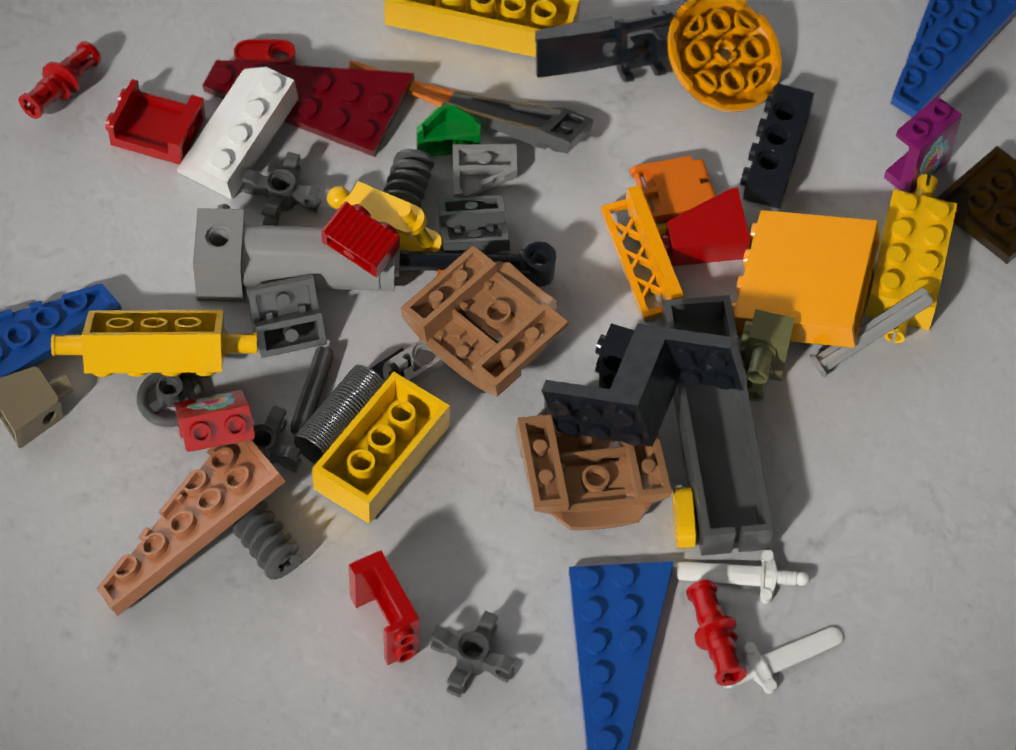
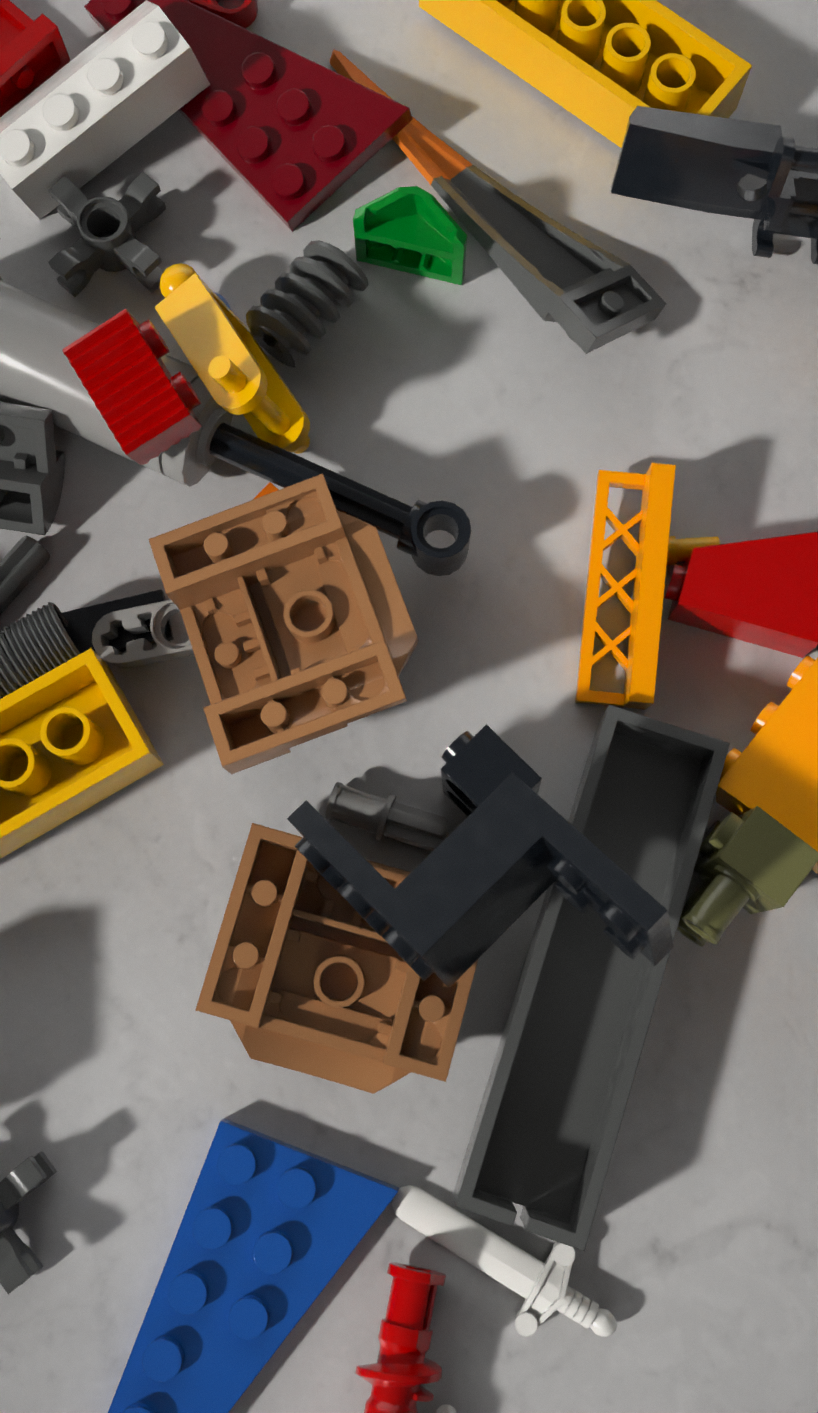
camera: 30 degrees right, 20 degrees up
(473, 222) = (371, 421): dark grey brick -> none
(482, 167) = (442, 319): light grey wing -> none
(673, 185) = (740, 482): orange plate -> none
(683, 518) = (455, 1117): yellow beam -> none

